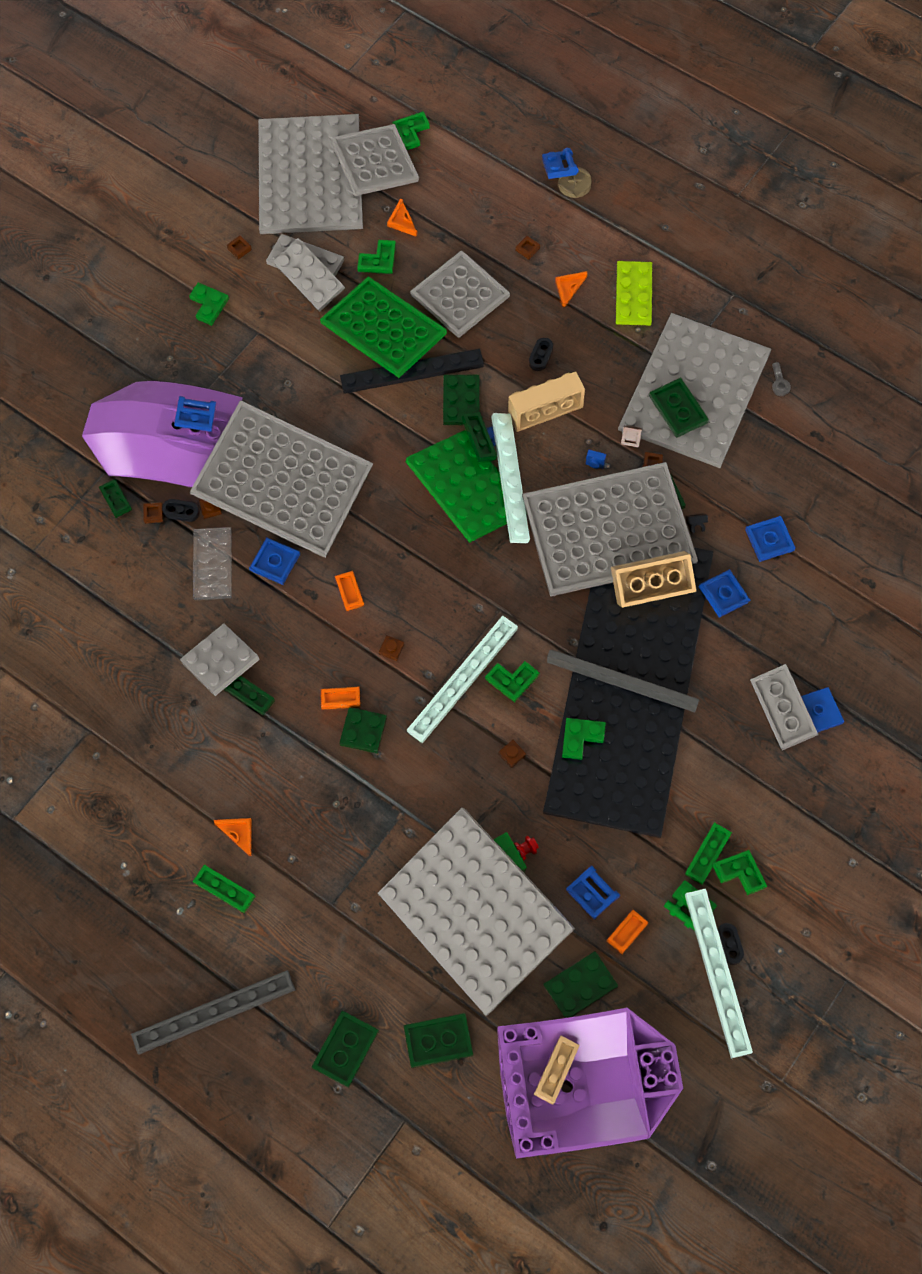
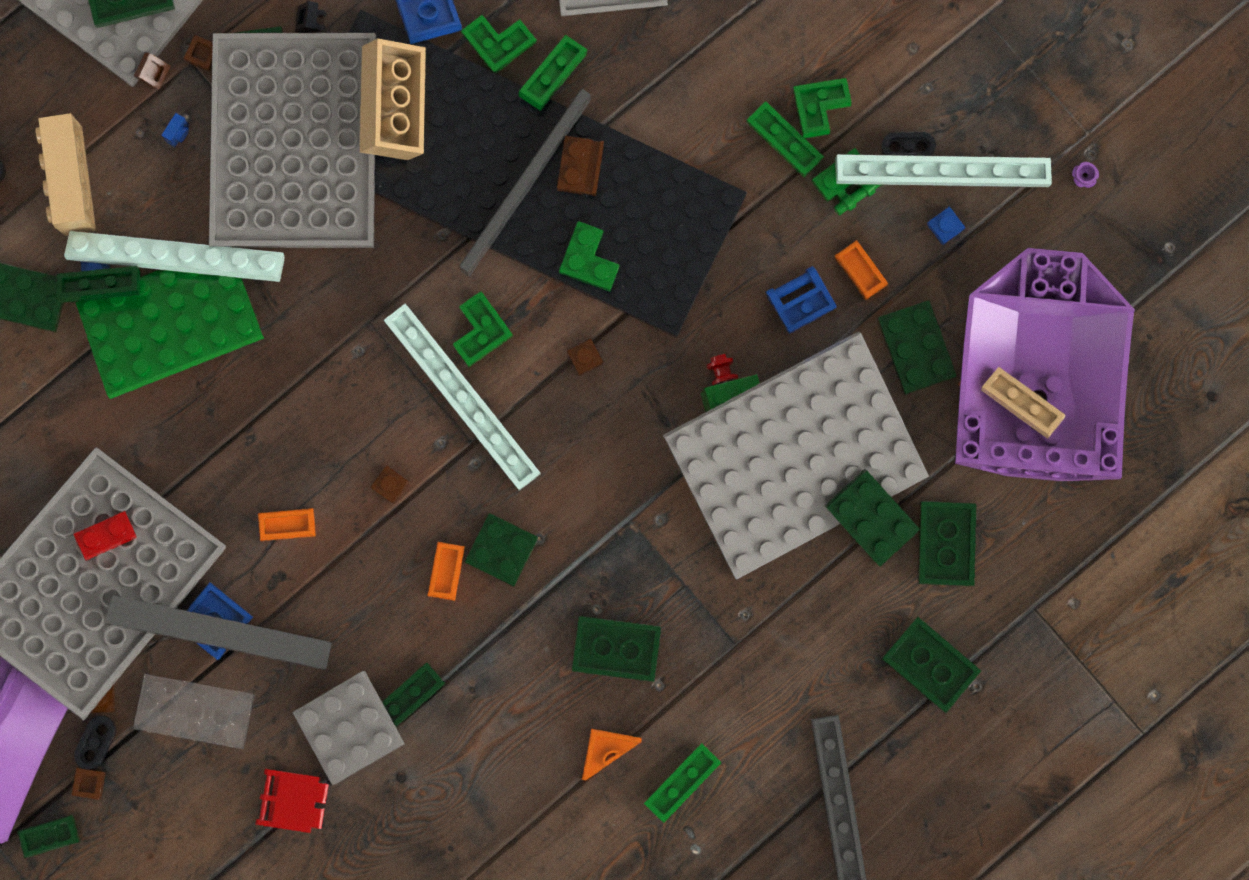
camera: 80 degrees left, 15 degrees up
(164, 637) = (293, 801): none -> red plate
(265, 563) = (218, 632): none -> dark grey tile
(310, 822) = (616, 649): none -> dark green plate
(314, 479) = (105, 535): none -> red plate
(443, 978) = (872, 517): none -> dark green plate
(646, 715) = (580, 166): none -> reddish brown plate
(678, 986) = (946, 226): none -> blue plate
(707, 682) = (552, 72): none -> green plate
(713, 643) = (497, 49): none -> green plate
(754, 1084) = (1092, 172): none -> medium lavender plate

